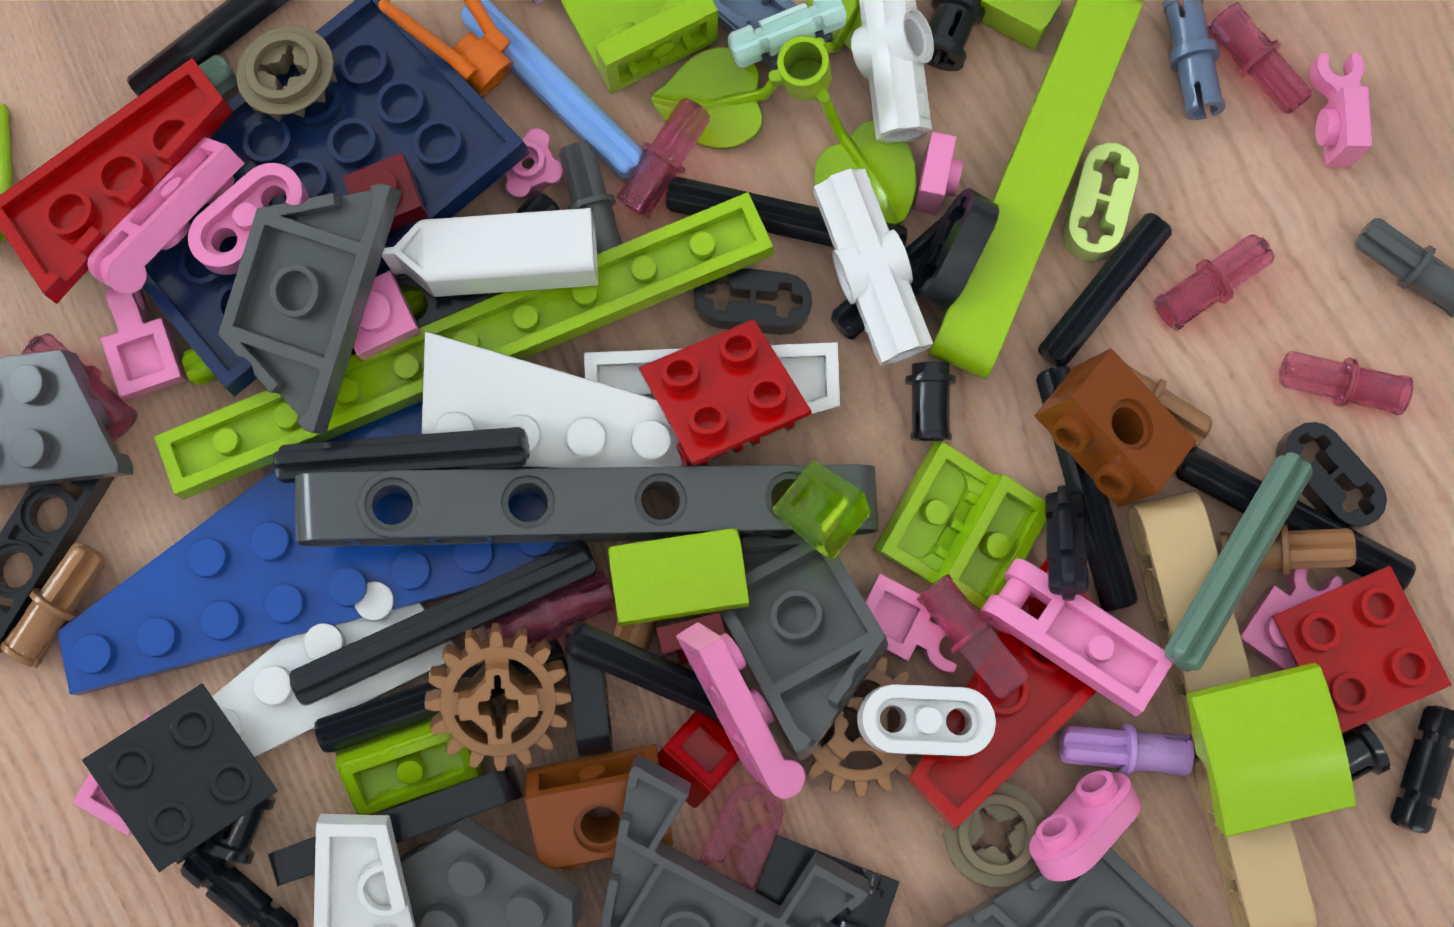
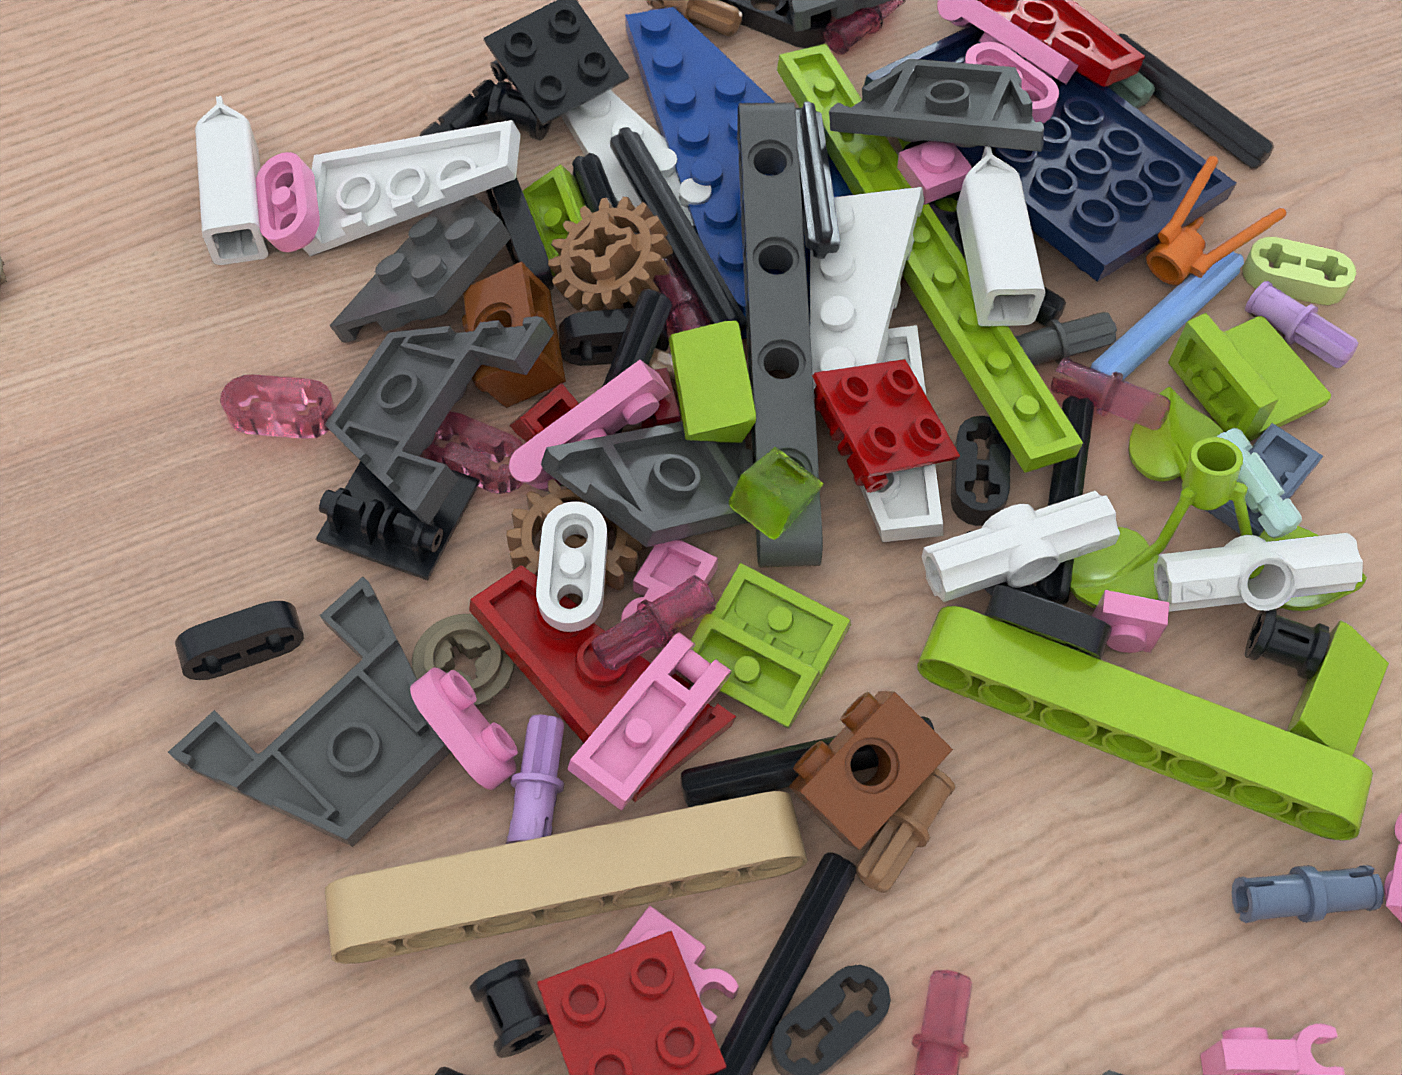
camera: 90 degrees right, 20 degrees down
(142, 351) = (896, 40): bright pink plate -> none
(273, 55) = (1162, 118): dark tan gear -> none
(395, 173) = (1043, 172): dark red plate -> none
(544, 171) = (1089, 297): bright pink plate -> none
(930, 401) = (891, 615): black pin -> none
(1066, 543) = (747, 710): black axle -> none
(1105, 290) = (1027, 792): black axle -> none
(1114, 205) = (1121, 790): yellowish green beam -> none
(1214, 281) = (1046, 905): clear pink axle -> none
(1238, 562) = (731, 881): sand green axle -> none
(1259, 58) = (1318, 971): clear pink axle -> none
(1271, 749) = (525, 894): lime slope -> none
(1308, 549) = (743, 953): medium nougat axle -> none

